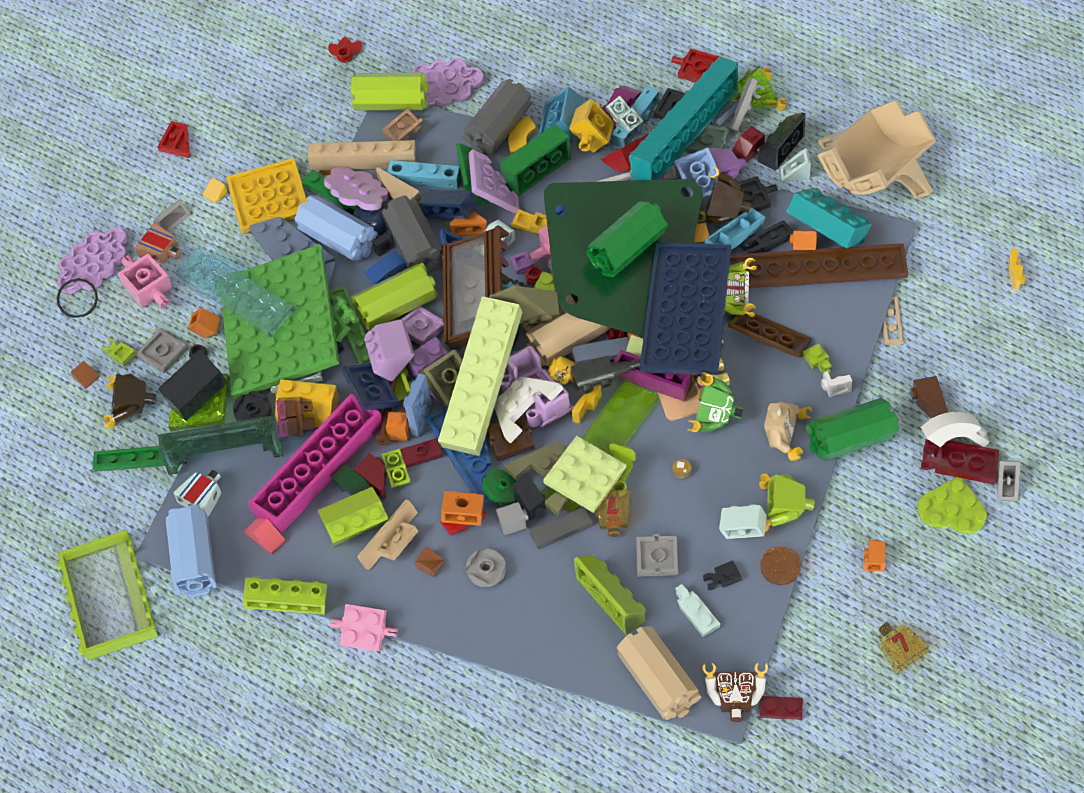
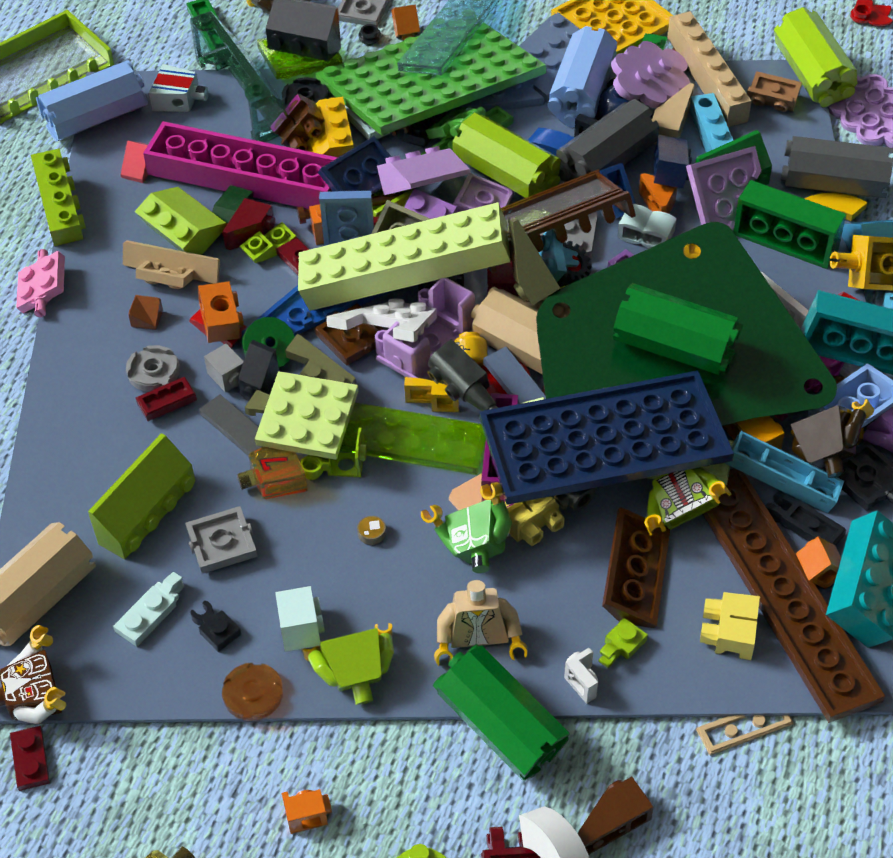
camera: 65 degrees right, 5 degrees down
(518, 564) = (166, 399): none -> dark red plate
(829, 298) = (736, 625): none -> light yellow hips

